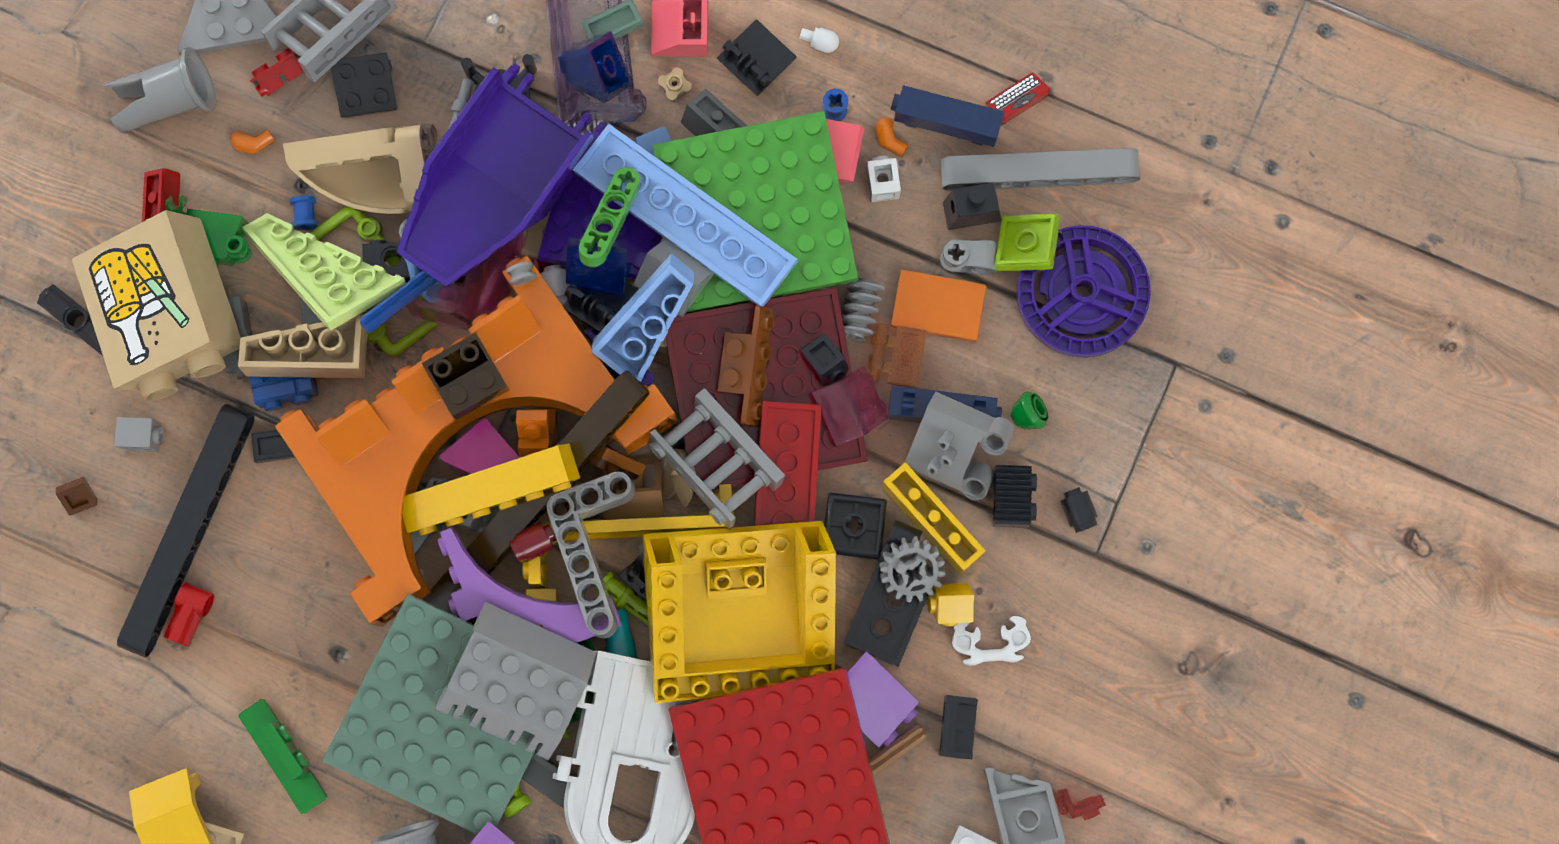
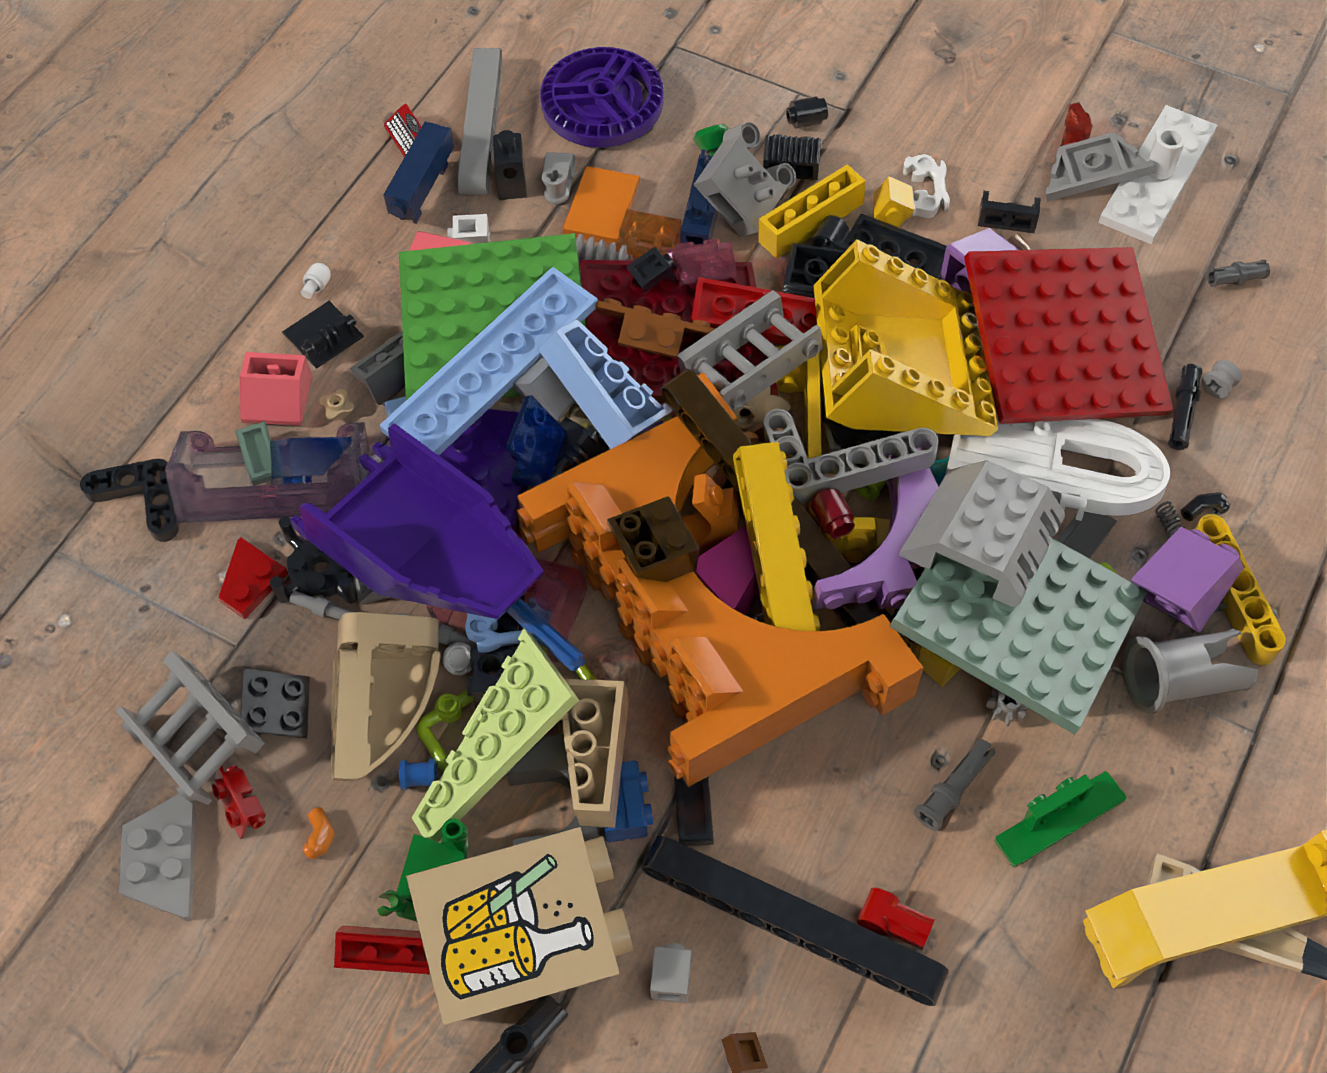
camera: 85 degrees left, 20 degrees down
(165, 91) = (234, 913): light grey piece -> none
(299, 657) = (947, 794): none -> dark grey pin
(488, 40) = (248, 578): none -> red wing
(521, 273) = (540, 492): light grey bush -> none
(609, 216) = (489, 406): bright green beam -> none
(835, 96) = (388, 272): blue bush -> none
(887, 139) = (437, 227): orange arm -> none
(908, 557) = (863, 219): light grey gear -> none
(1027, 242) = (551, 126): lime tile -> none

